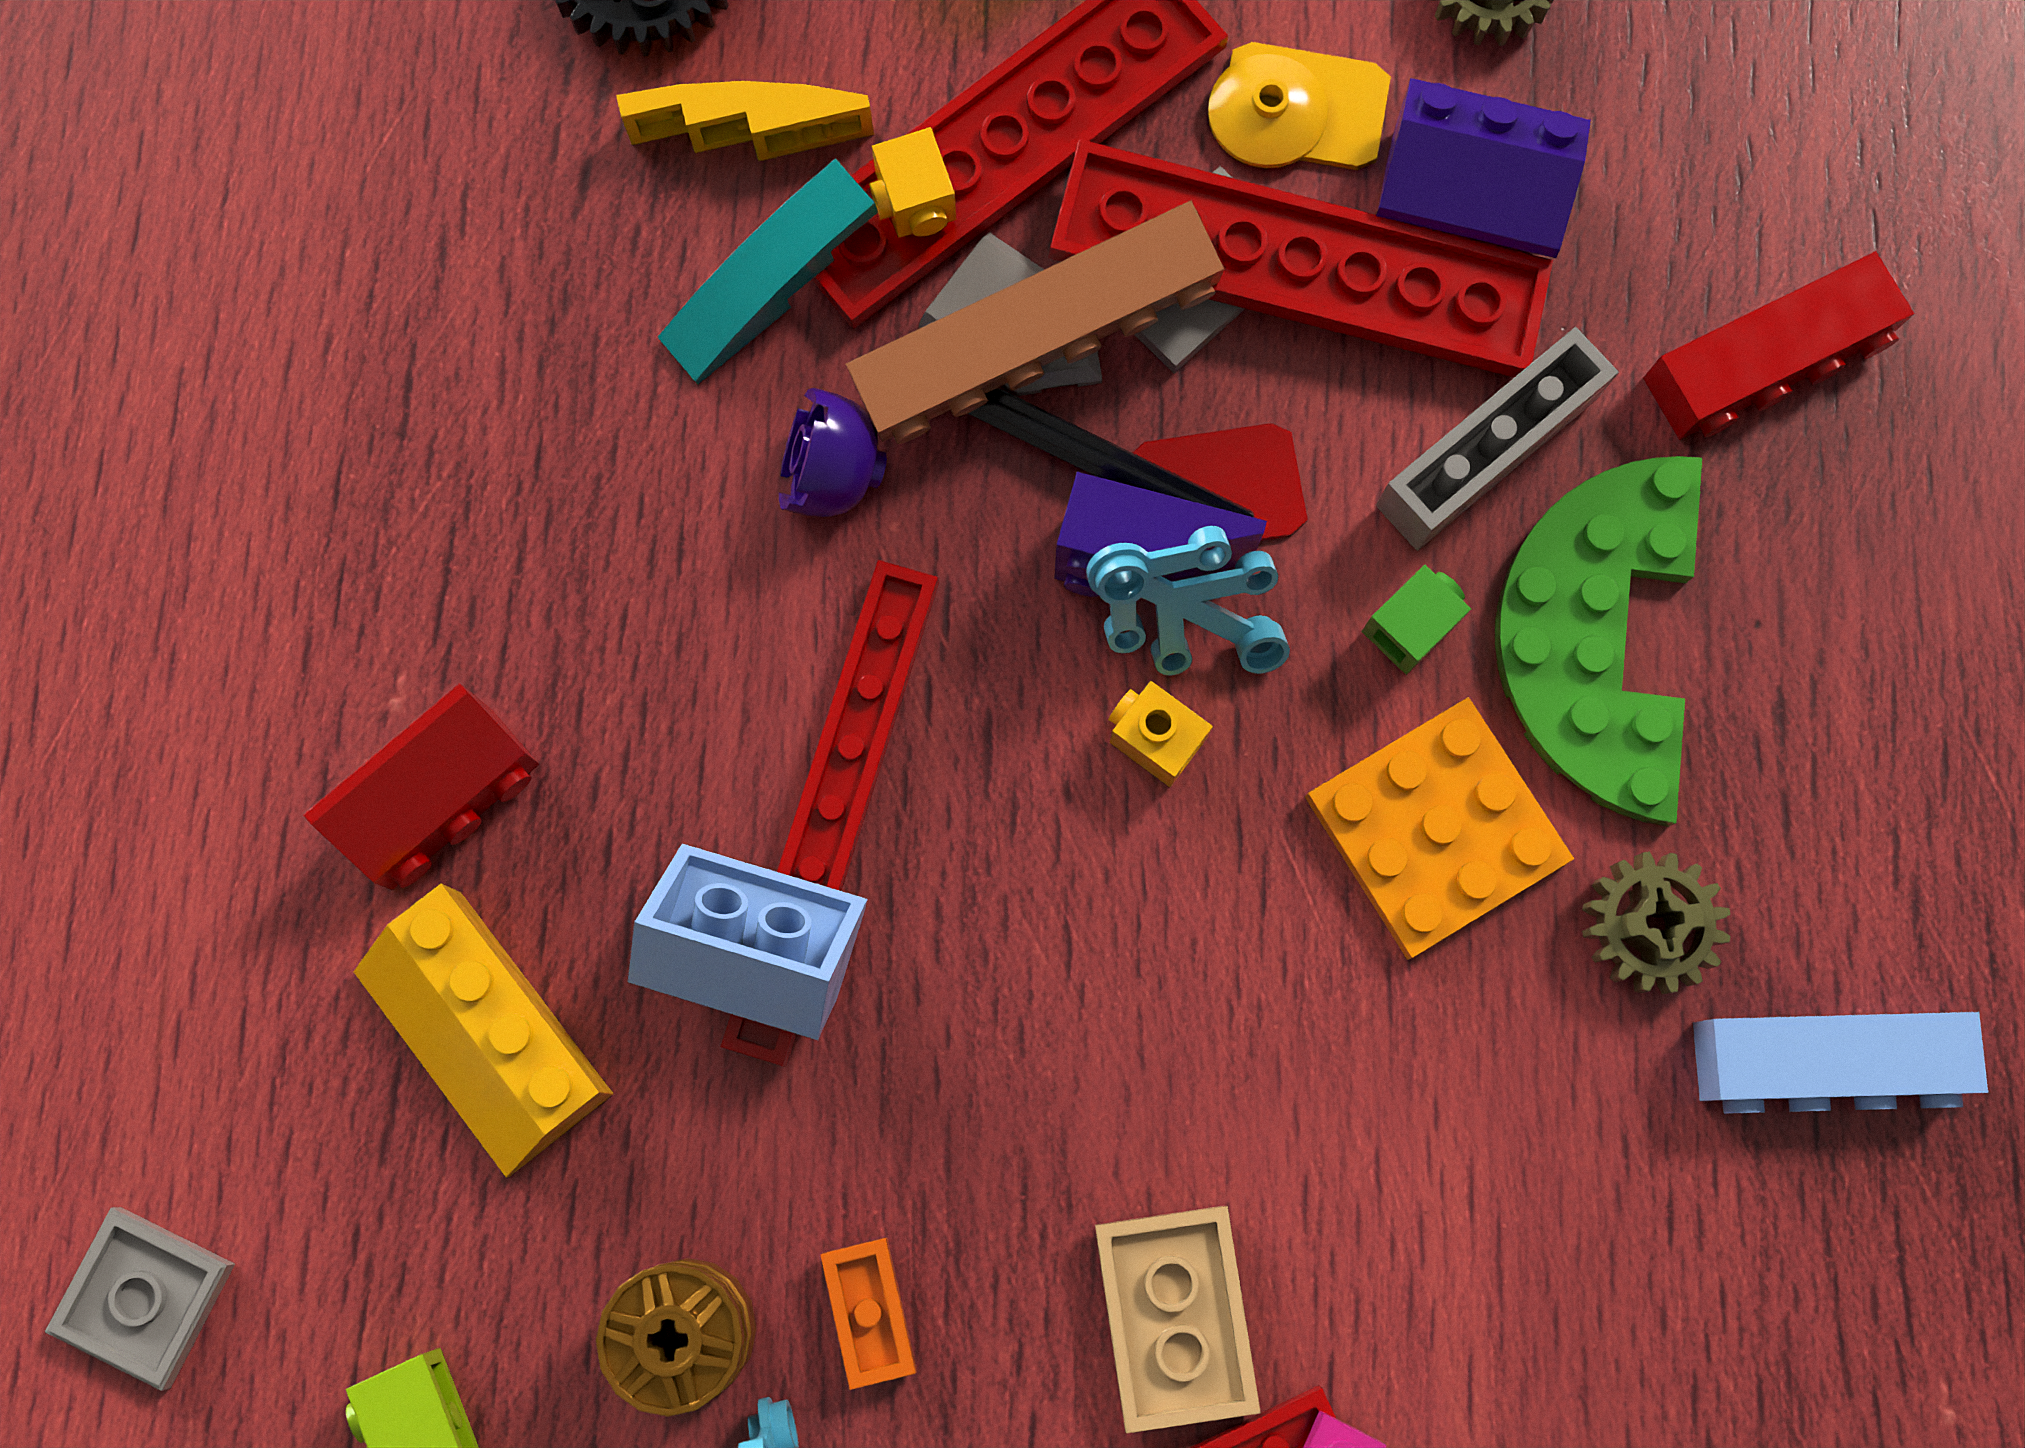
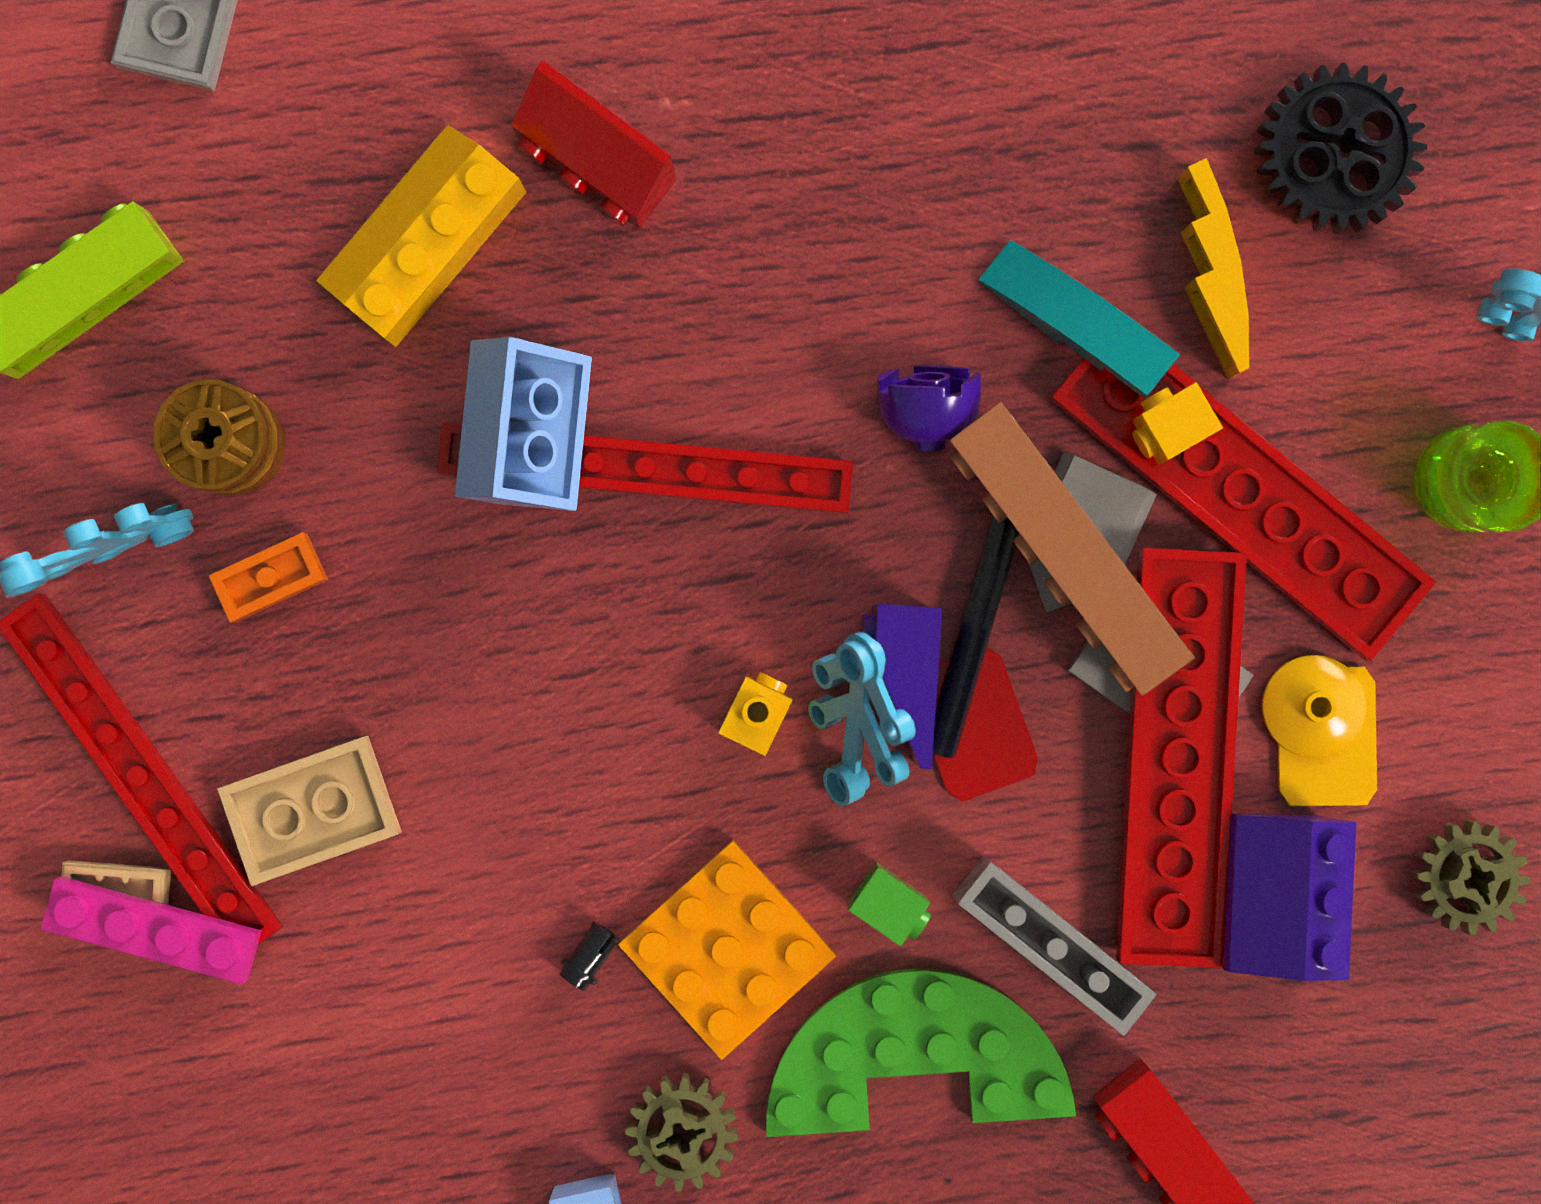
camera: 80 degrees right, 10 degrees up
(1421, 996) = (589, 956): none -> black pin

